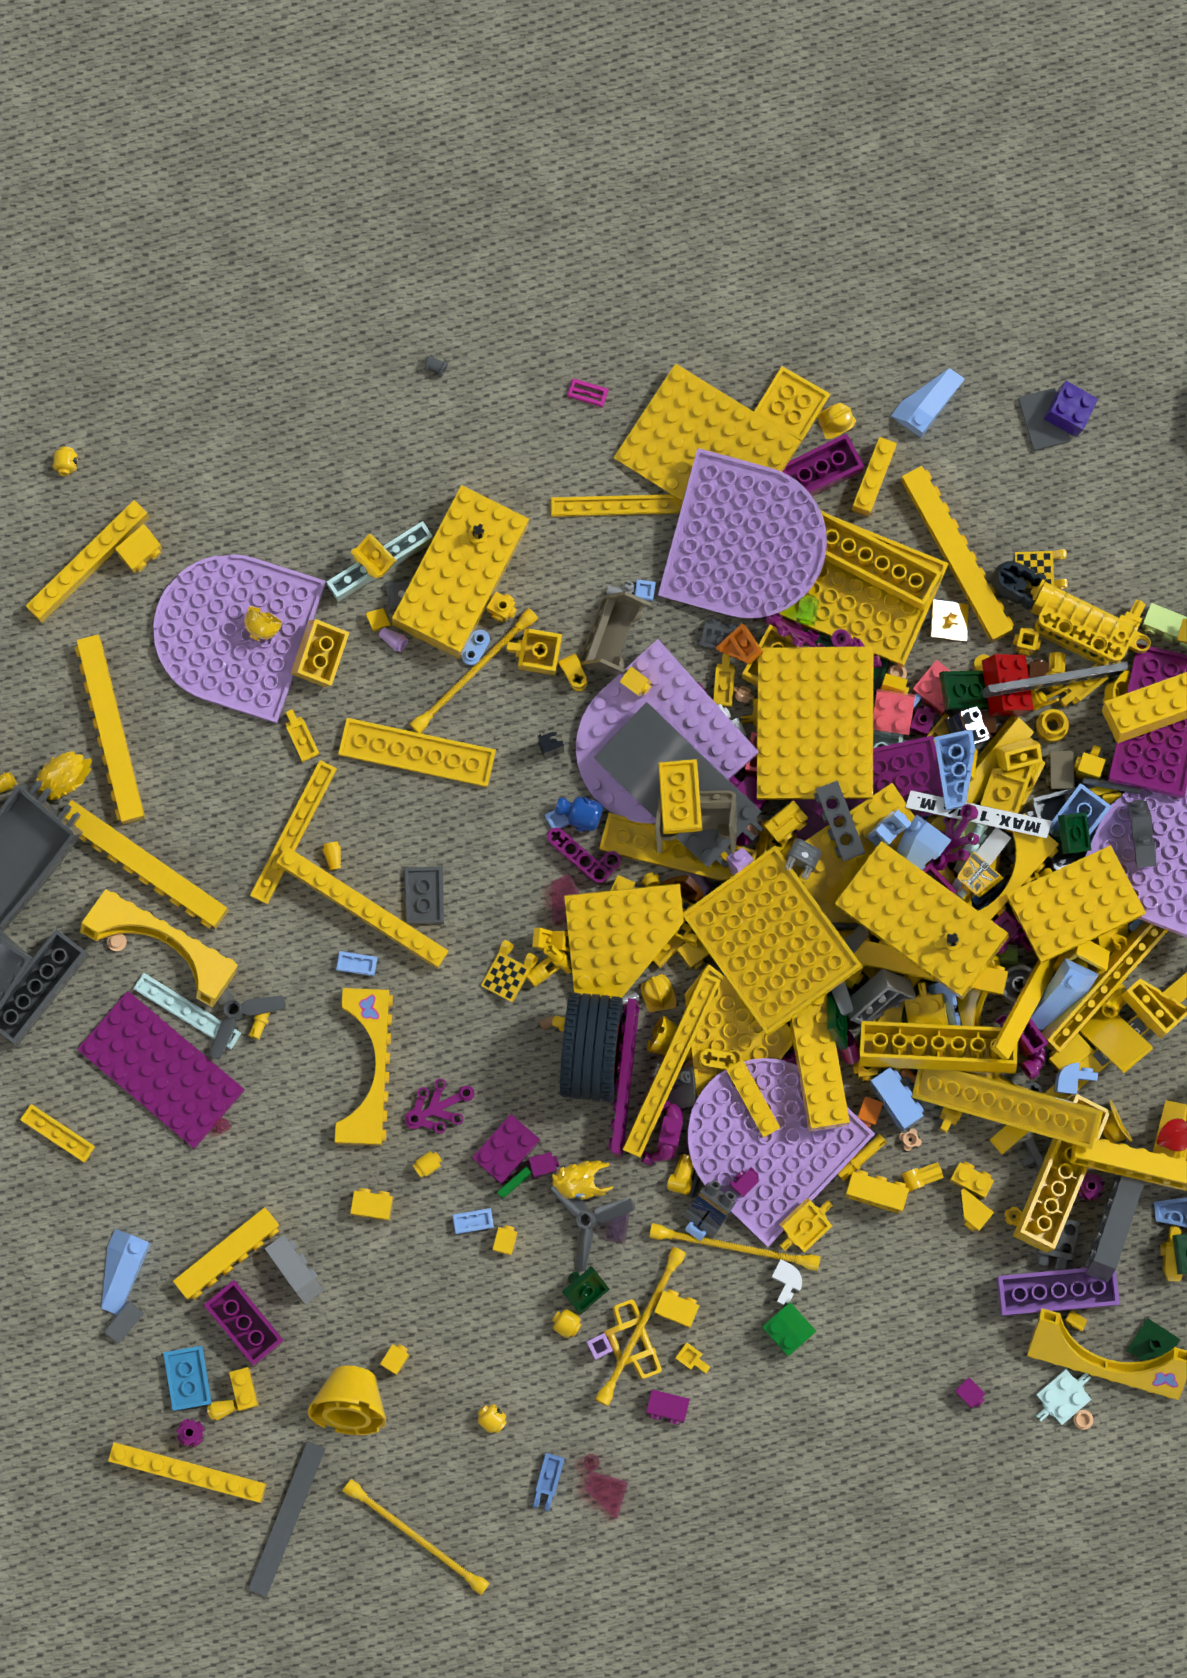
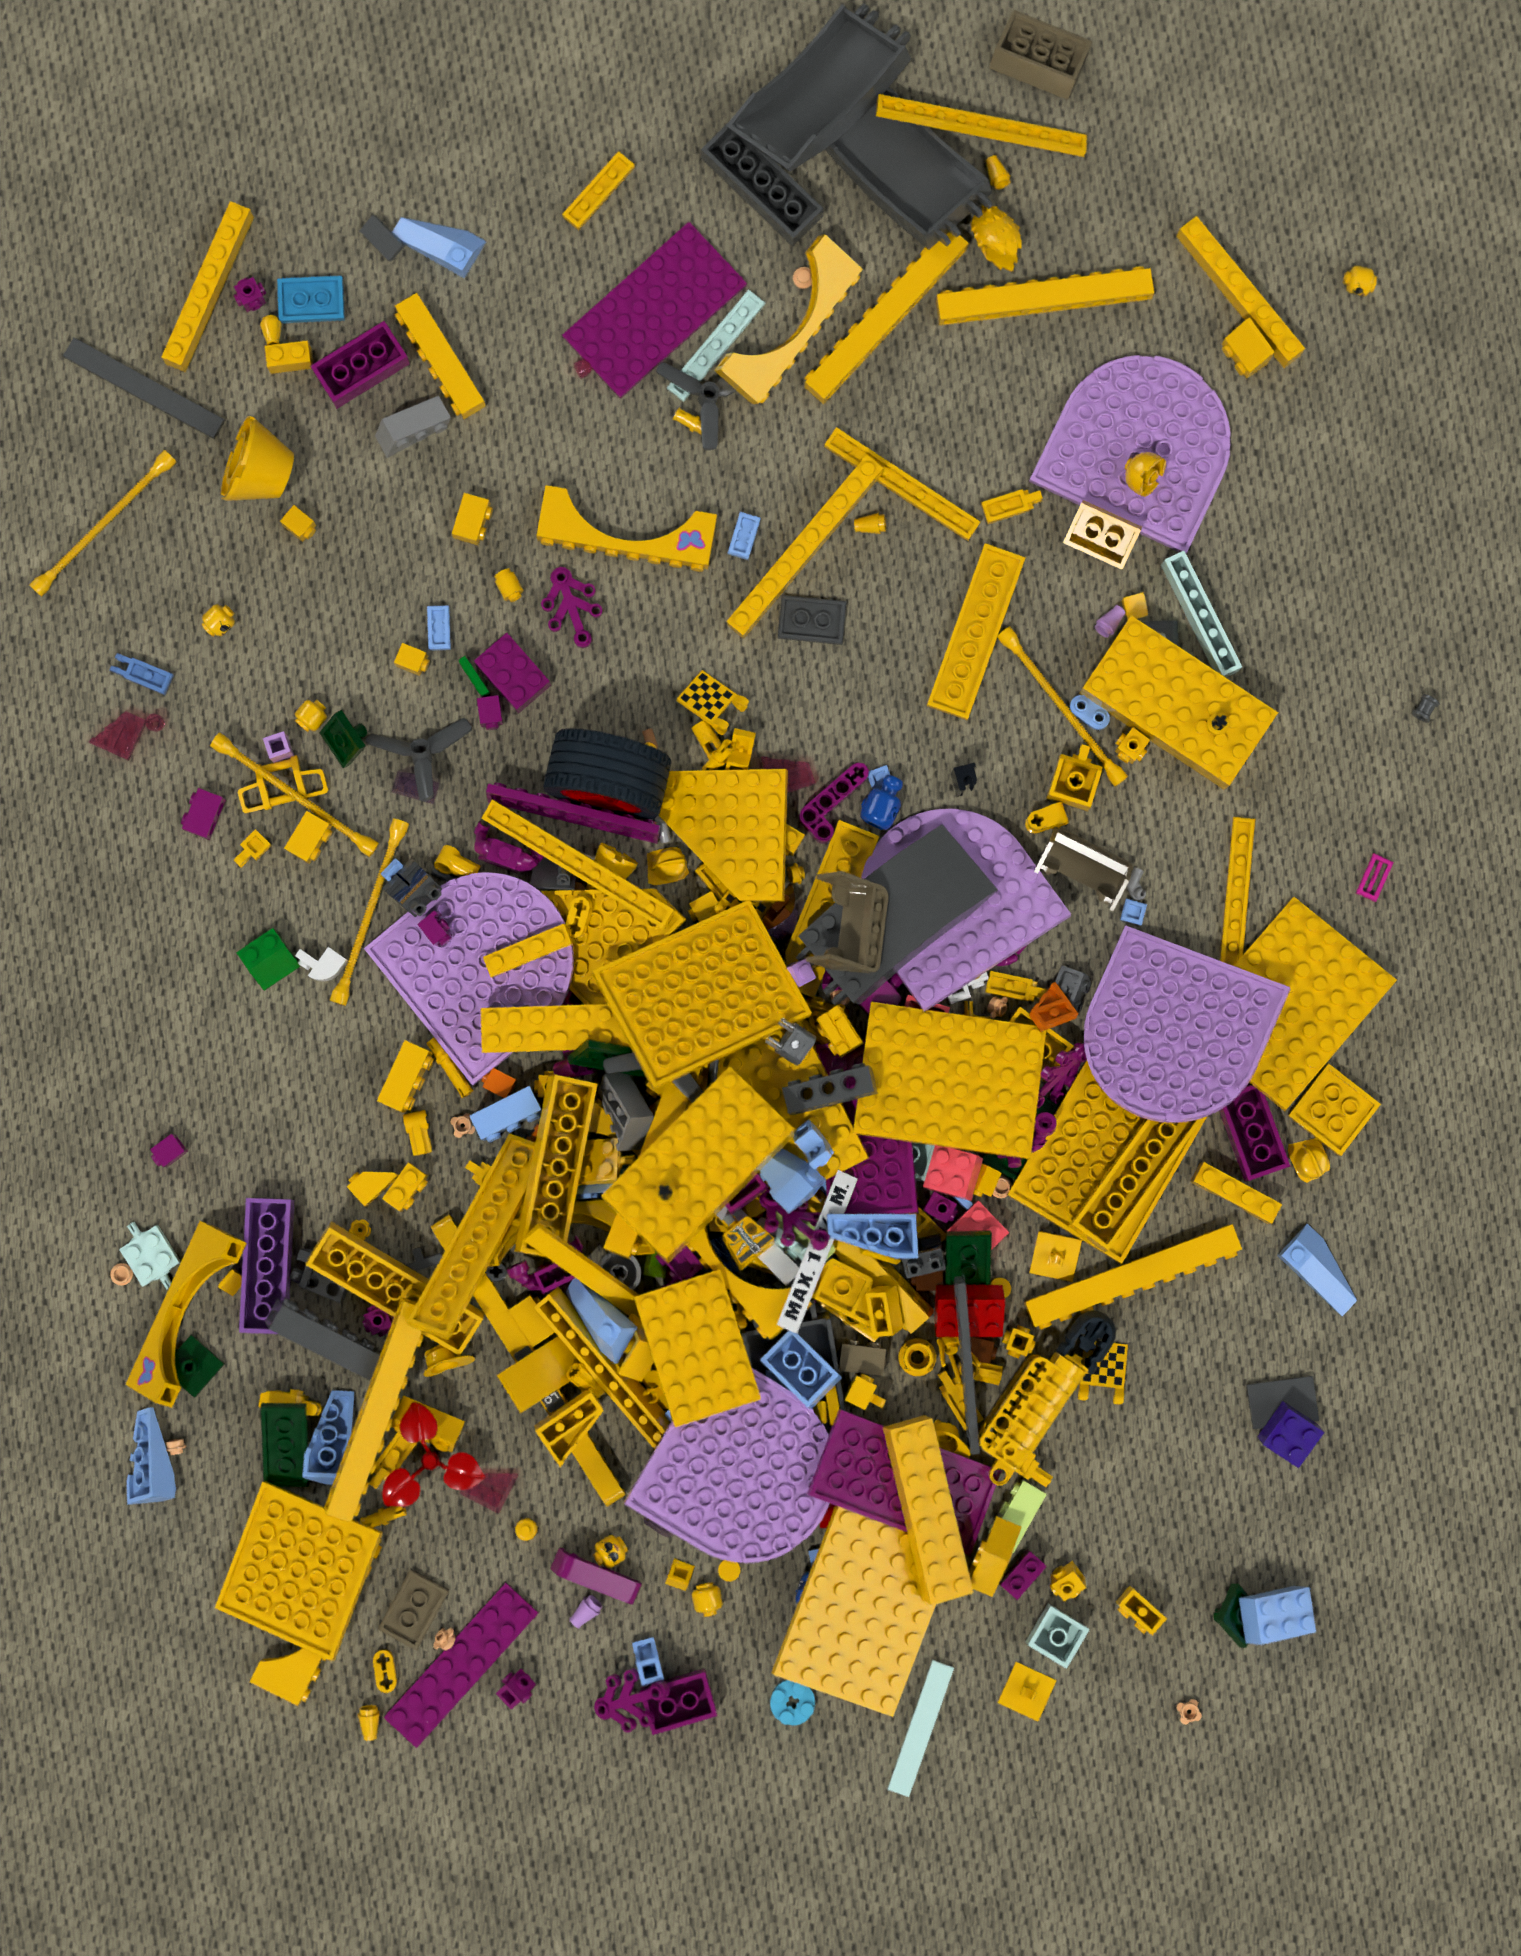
camera: 90 degrees right, 5 degrees up
(373, 557) = (1205, 603): yellow bracket -> none
(578, 1180) = (465, 744): yellow head -> none
(636, 682) = (1022, 881): yellow brick -> none
(680, 796) = (878, 908): yellow tile -> none
(805, 1225) = (381, 993): yellow plate -> none
(808, 610) = (1085, 1092): clear neon green brick -> none
(1068, 1076) = (504, 1312): light blue brick -> none
(1073, 833) = (779, 1357): dark green tile -> none
(1109, 785) = (838, 1403): dark grey bar -> none
(1142, 834) = (770, 1438): dark grey arch -> none

